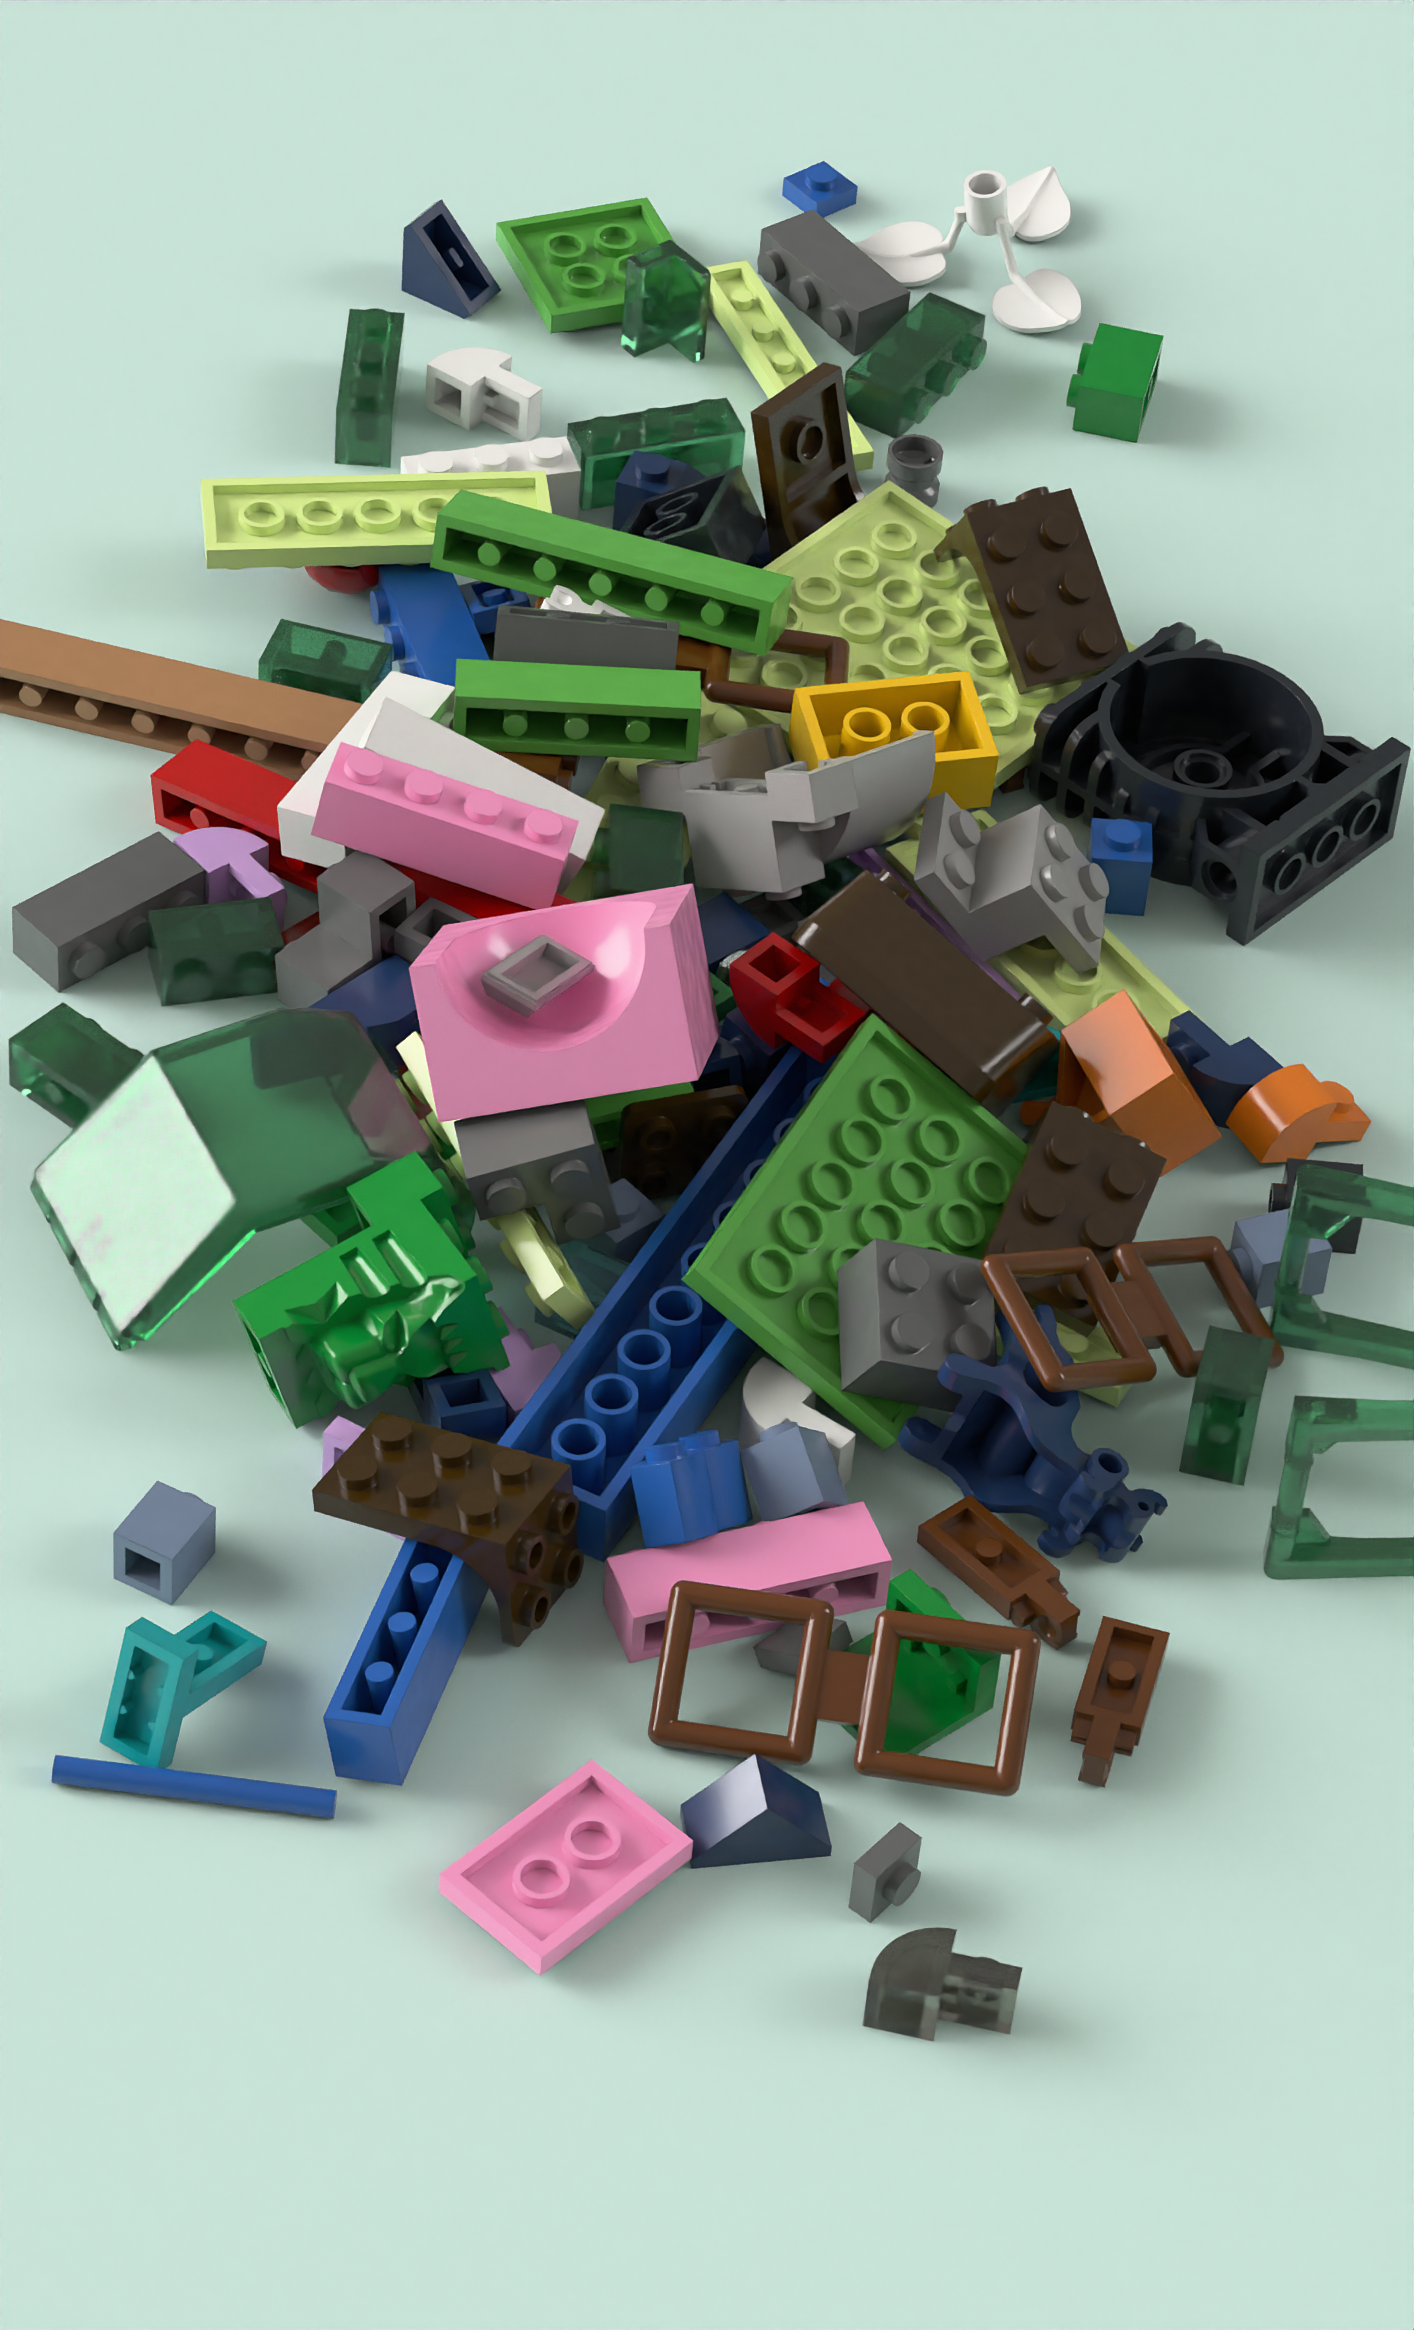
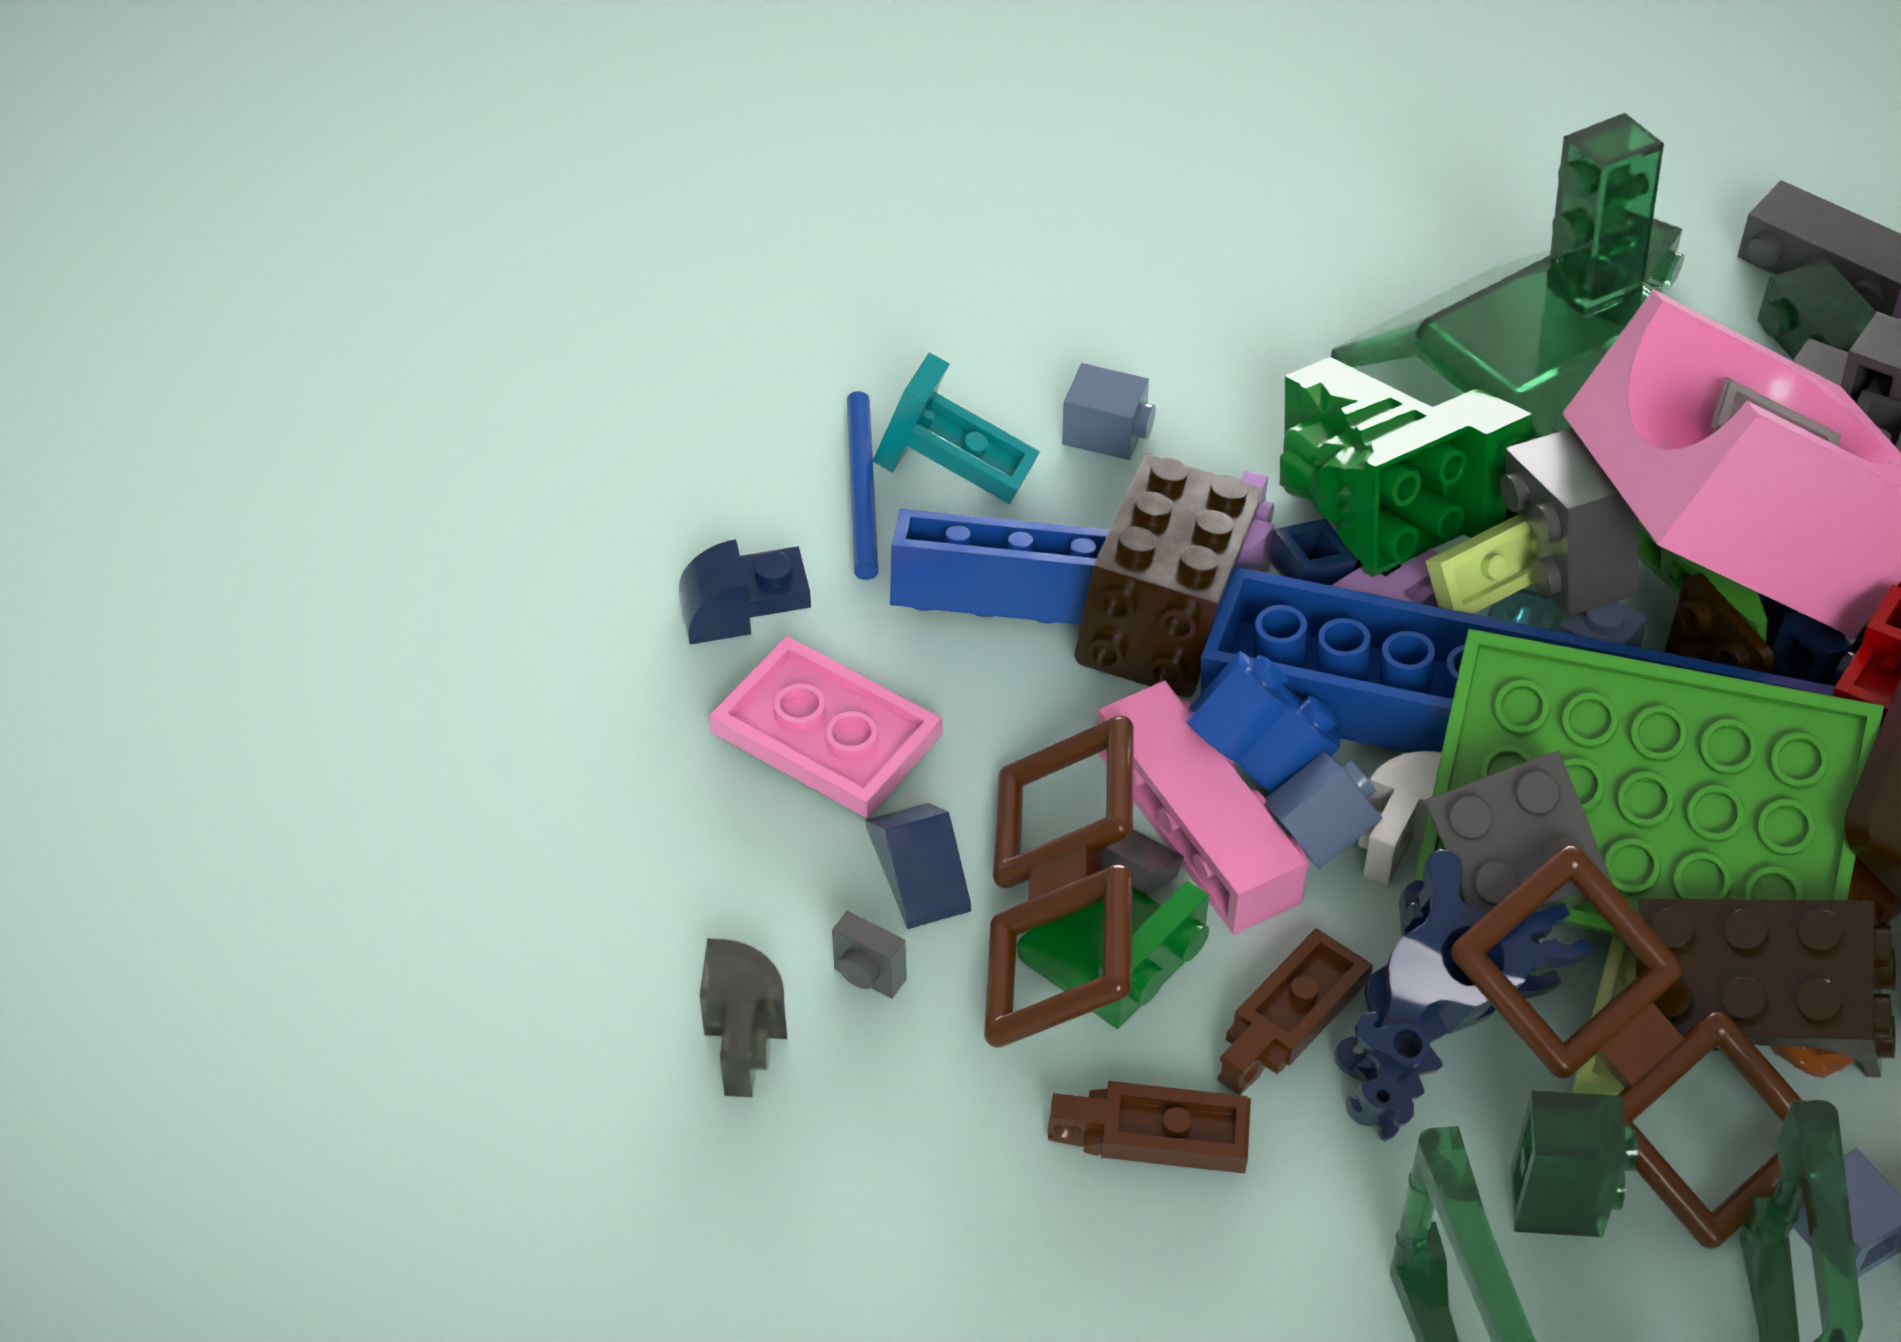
camera: 85 degrees right, 5 degrees up
(232, 989) = (1604, 214): none -> clear green brick
(355, 1911) = (725, 589): none -> dark blue brick

